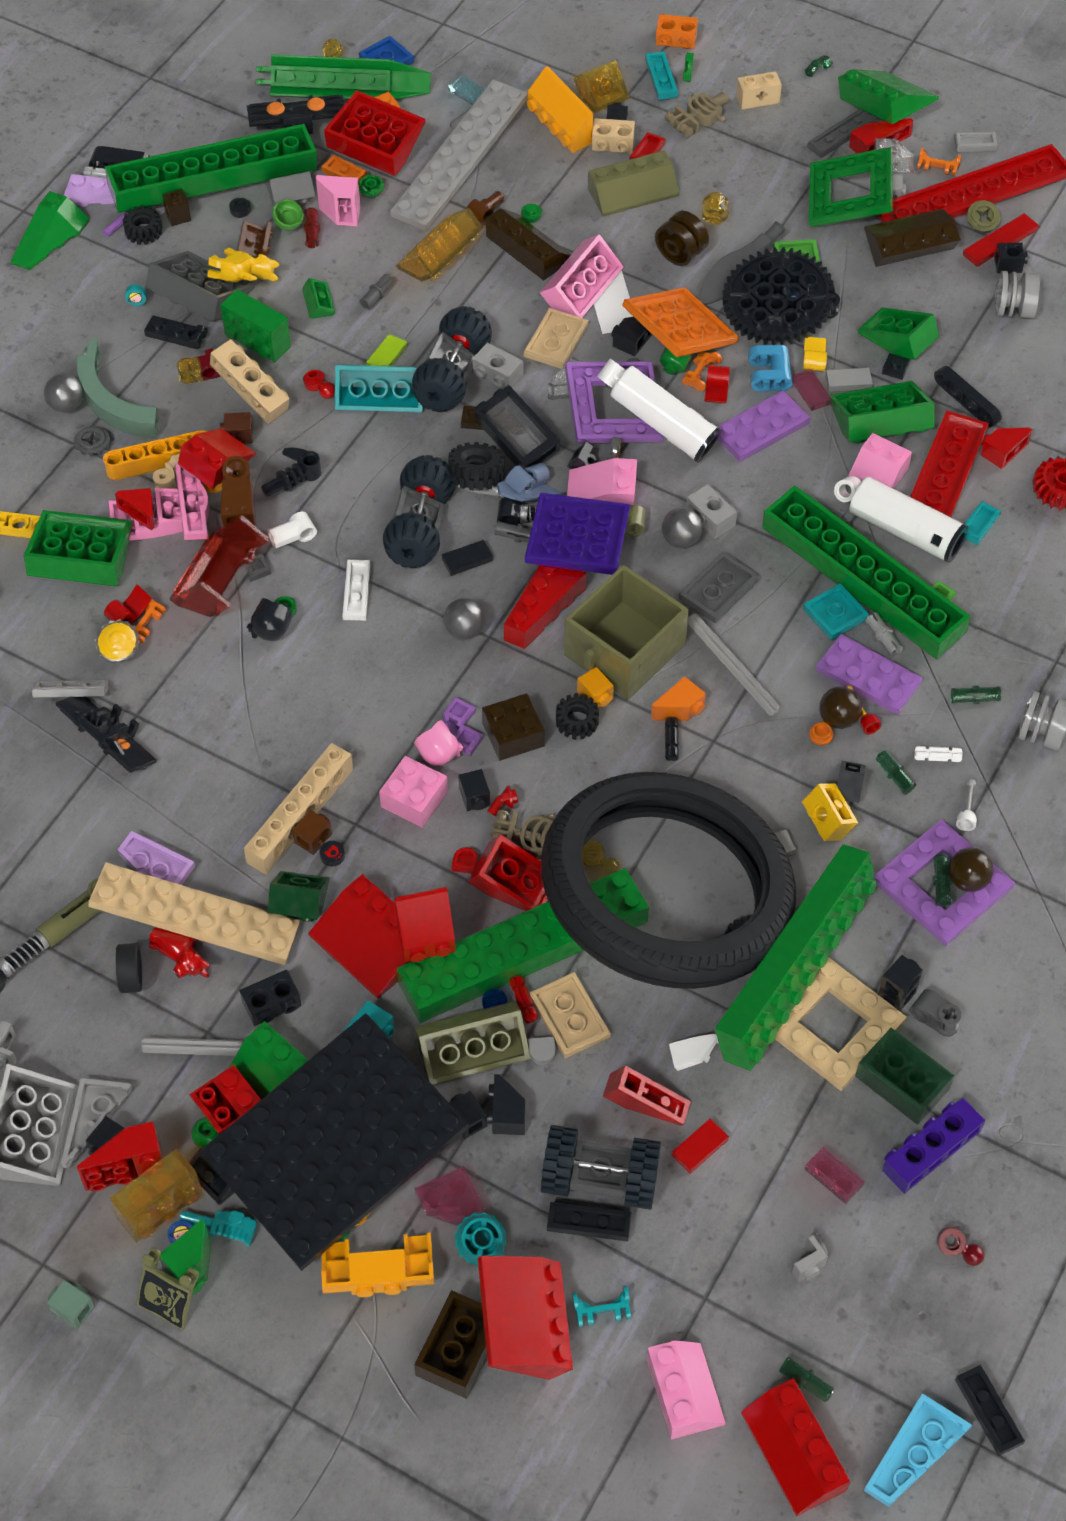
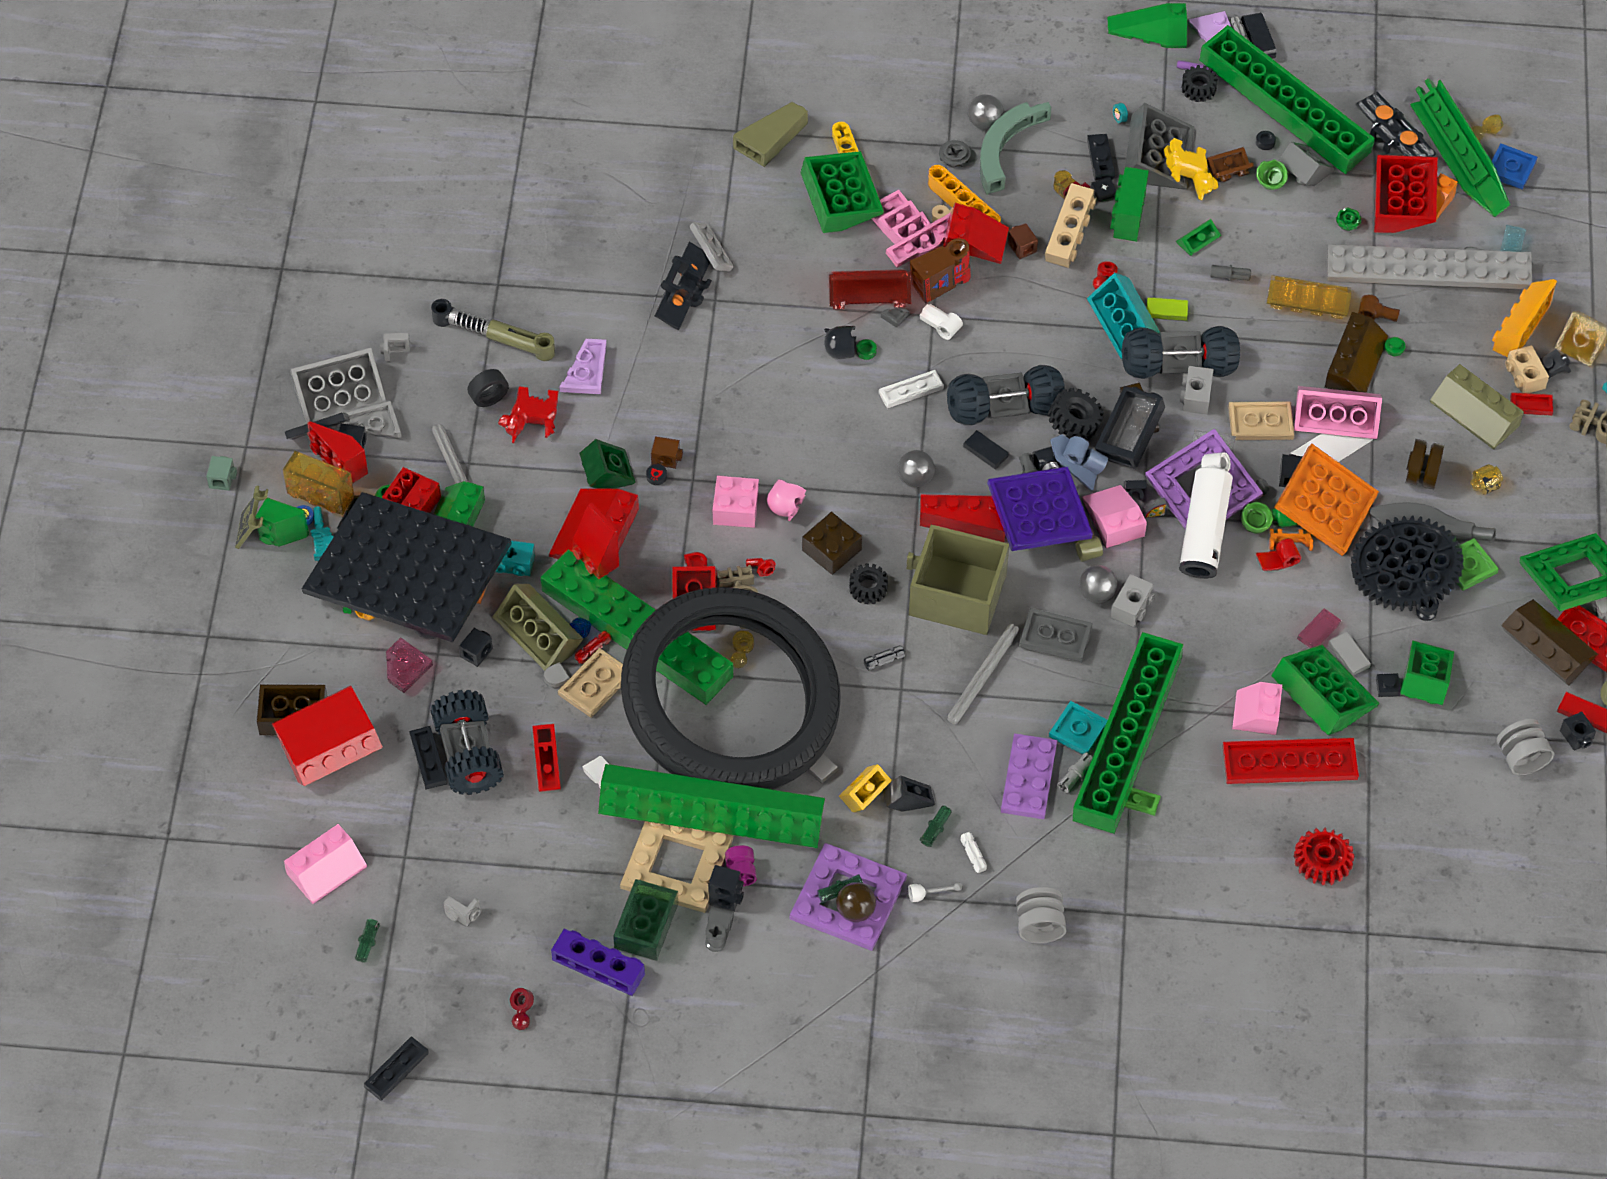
camera: 65 degrees right, 0 degrees up
(70, 1173) = (327, 422): none -> black tile
(117, 641) = (767, 254): yellow piece -> none
(131, 608) = (800, 249): red panel -> none
(137, 504) = (898, 209): red slope -> none
(152, 611) = (789, 264): orange piece -> none
(176, 207) = (1231, 96): dark brown brick -> none
(194, 913) = (551, 407): tan plate -> none
(214, 341) = (1103, 189): none -> black tile
(267, 992) = (512, 483): black brick -> none
(306, 468) = (1010, 301): black piece -> none
(309, 794) = (693, 435): tan brick -> none
(311, 227) = (1272, 198): clear red pin -> none
(339, 199) = (1310, 202): bright pink slope -> none
(341, 168) = (1352, 192): orange plate -> none
(378, 1270) = (326, 642): light orange bracket -> none
(456, 717) = (822, 504): medium lavender tile -> none
(474, 790) = (759, 541): black brick -> none
(480, 1236) = (382, 694): teal piece -> none
(508, 1108) = (494, 669): black slope -> none
(596, 686) = (899, 585): light orange brick -> none
(620, 1303) = (370, 804): teal piece -> none
(670, 380) = (1256, 517): none -> bright green hair
(680, 701) = (920, 647): orange slope -> none
(700, 1146) = (525, 808): red tile -> none
(762, 425) = (1254, 606): medium lavender plate -> none
(780, 368) = (1335, 591): dark azure connector -> none
(795, 1447) = (312, 952): red slope -> none
(814, 354) = (1359, 620): yellow panel -> none
(821, 734) = (946, 760): orange plate -> none
(834, 1175) = (541, 903): clear pink plate -> none
(840, 707) = (973, 761): dark brown piece -> none
(869, 722) = (976, 790): red hinge -> none
(870, 961) = (742, 859): none -> magenta wheel
(903, 516) = (1205, 742): white piece -> none
(918, 1445) = (346, 1029): medium azure wing -> none
(967, 396) = (1382, 750): black beam -> none
(981, 522) = (1243, 807): teal tile -> none
(992, 694) = (1050, 860): clear green pin -> none
(1004, 445) = (1342, 797): red slope -> none

